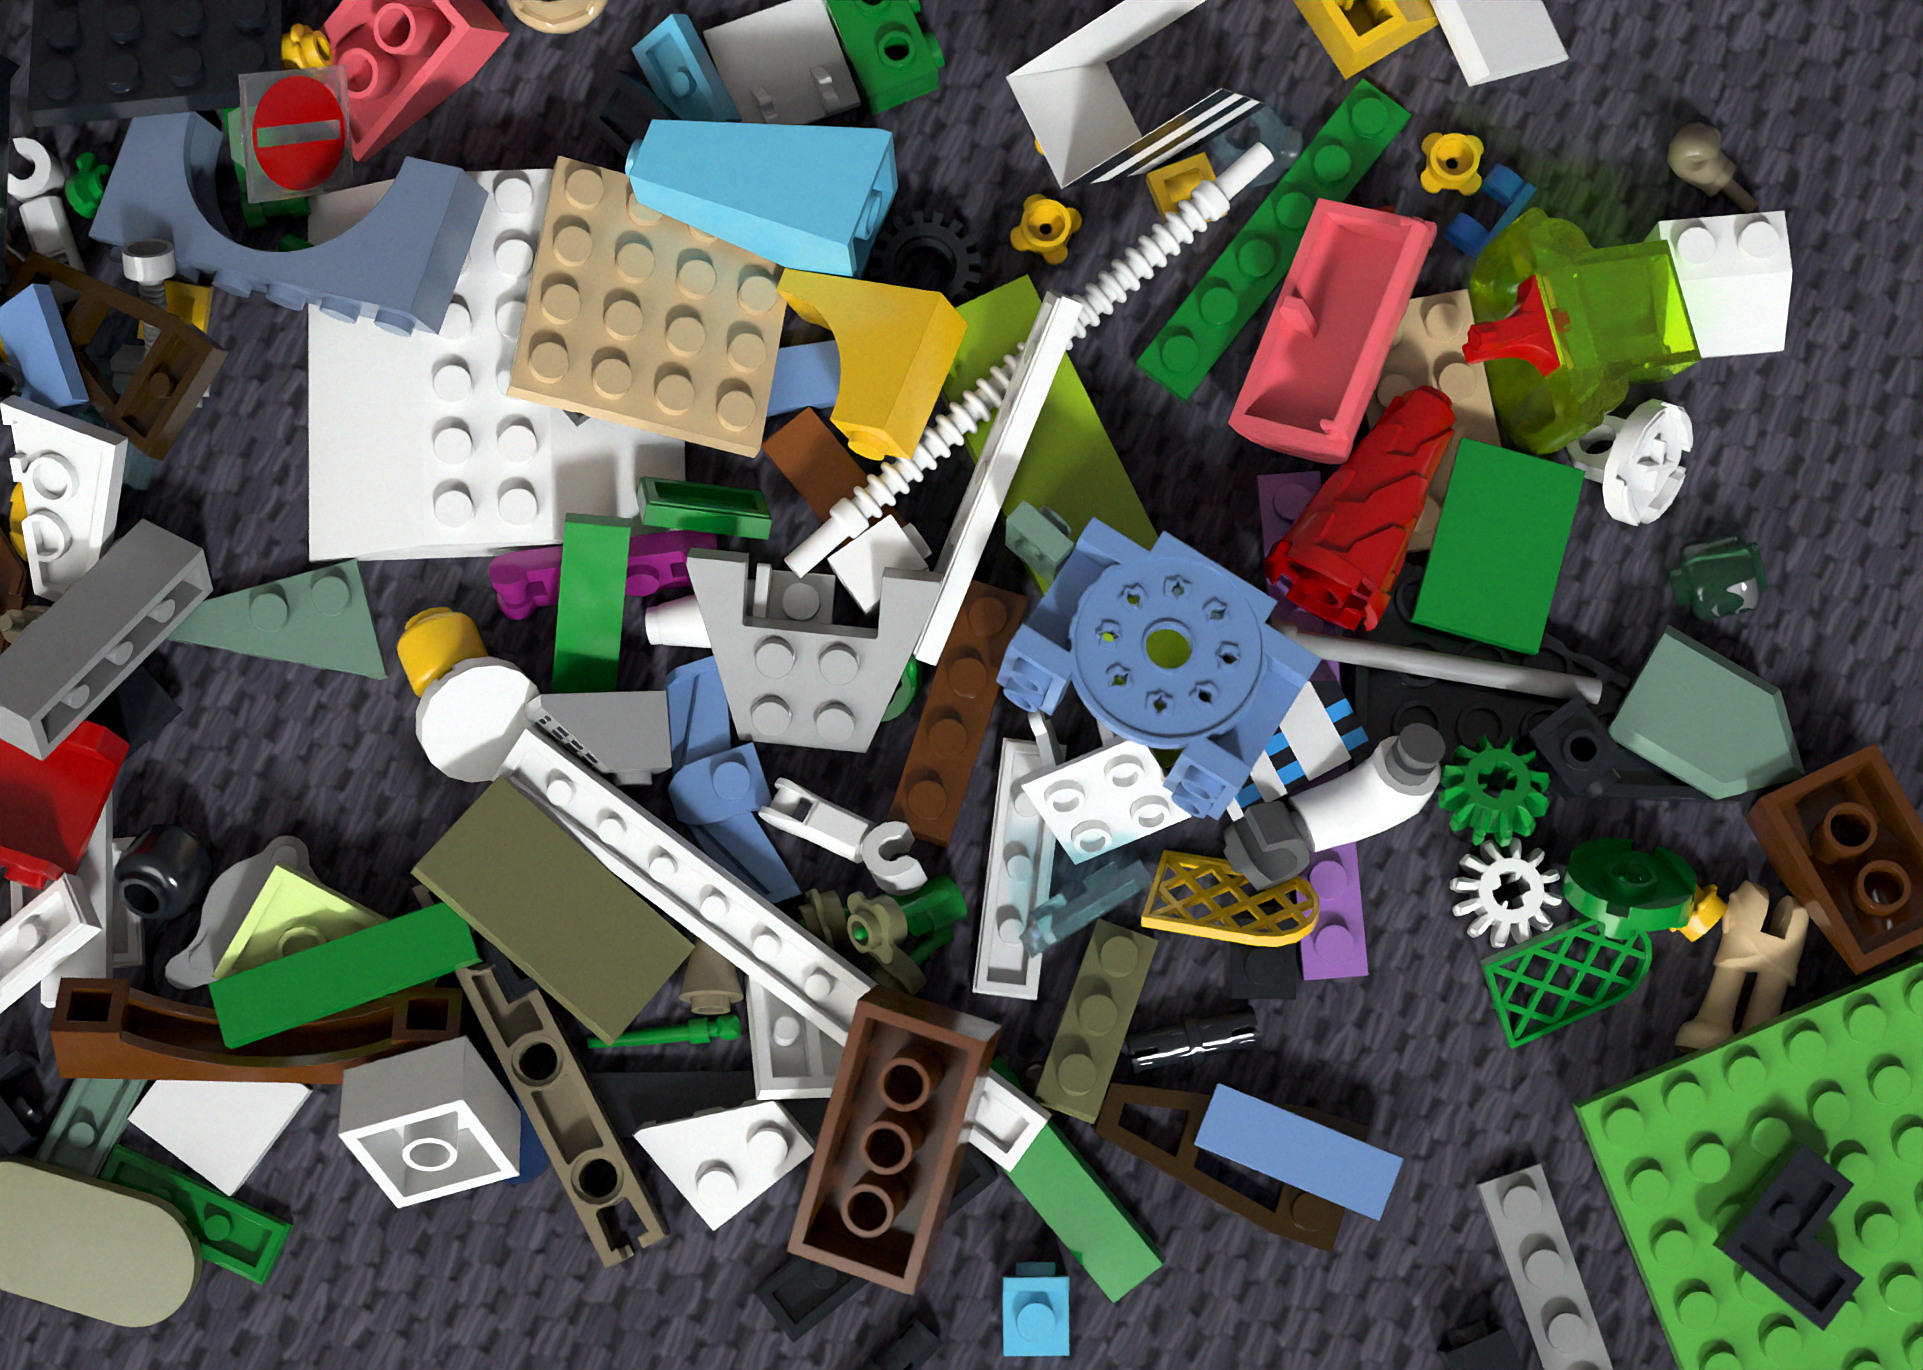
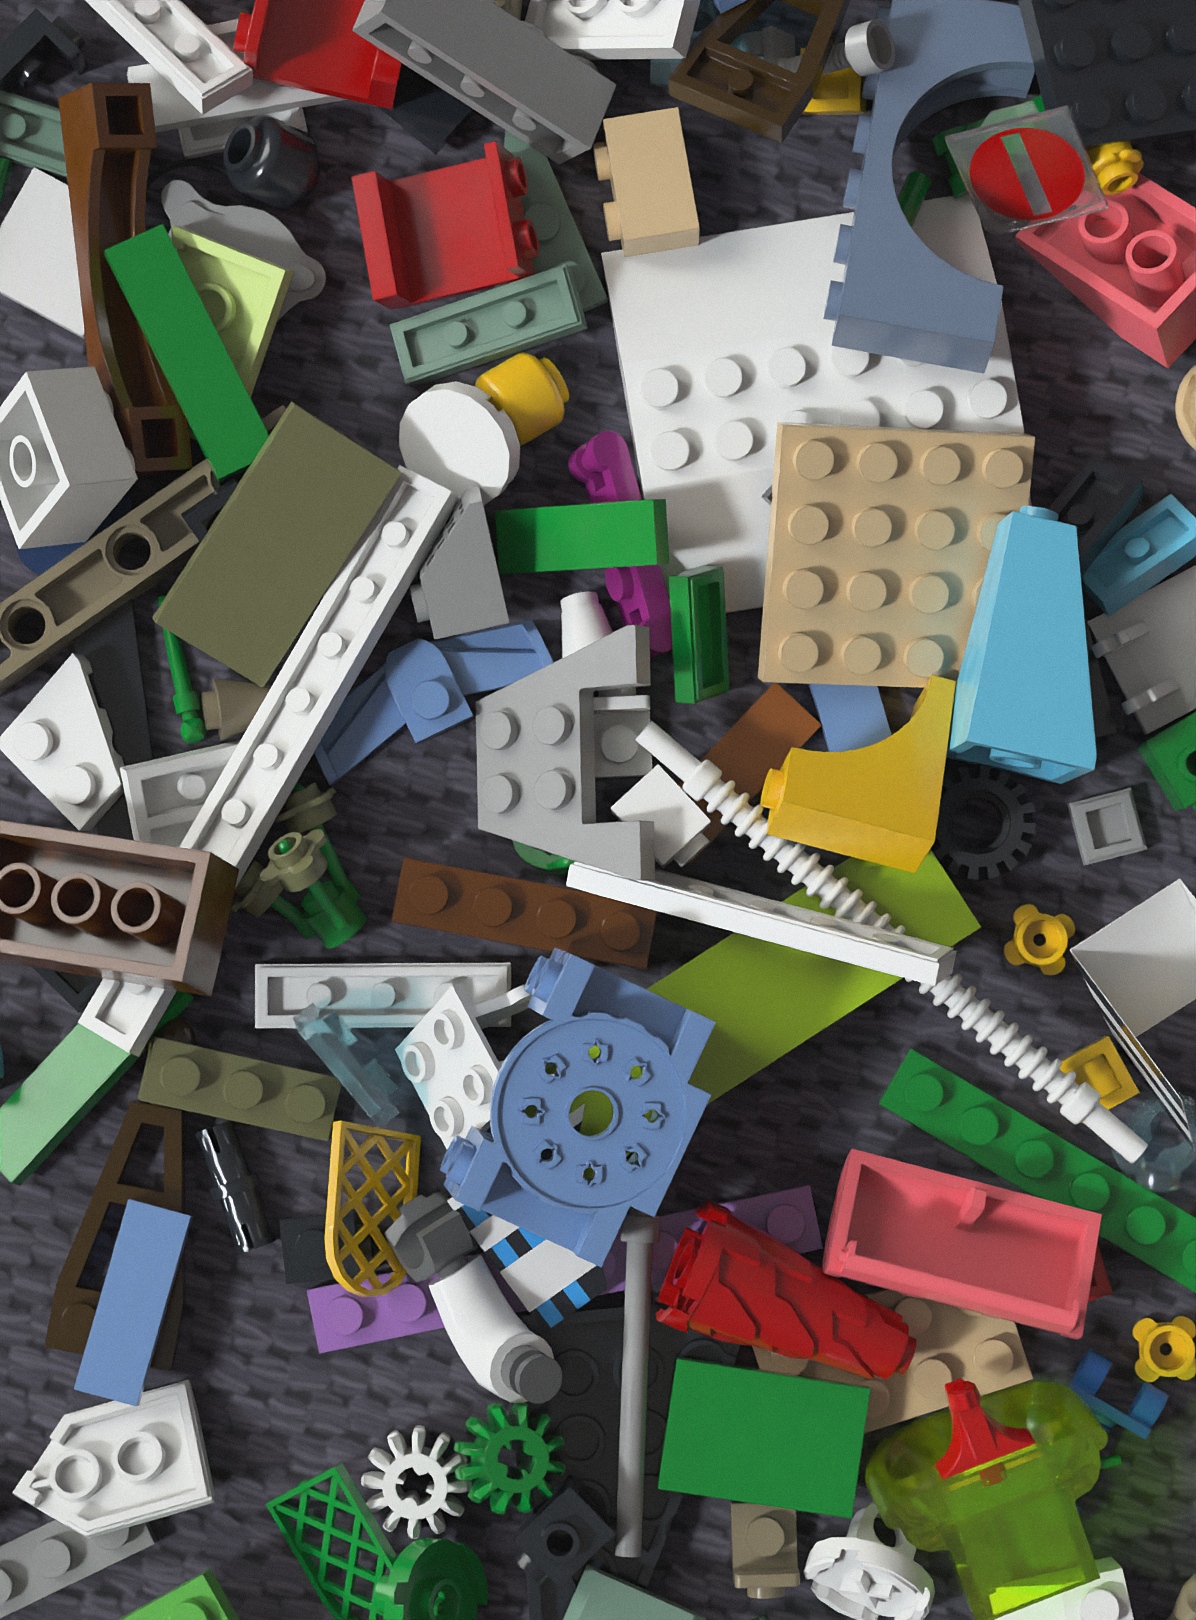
camera: 80 degrees right, 5 degrees up
(246, 502) = (648, 182): none -> tan piece
(261, 704) = (446, 229): none -> red panel
(365, 678) = (488, 326): none -> sand green tile
(848, 836) = (387, 820): white piece -> none
(944, 152) = (1107, 826): none -> light grey tile
(1039, 539) = (697, 974): sand green plate -> none
(1458, 1185) = (123, 1464): none -> white tile
(1605, 564) = (764, 1549): none -> dark tan bracket

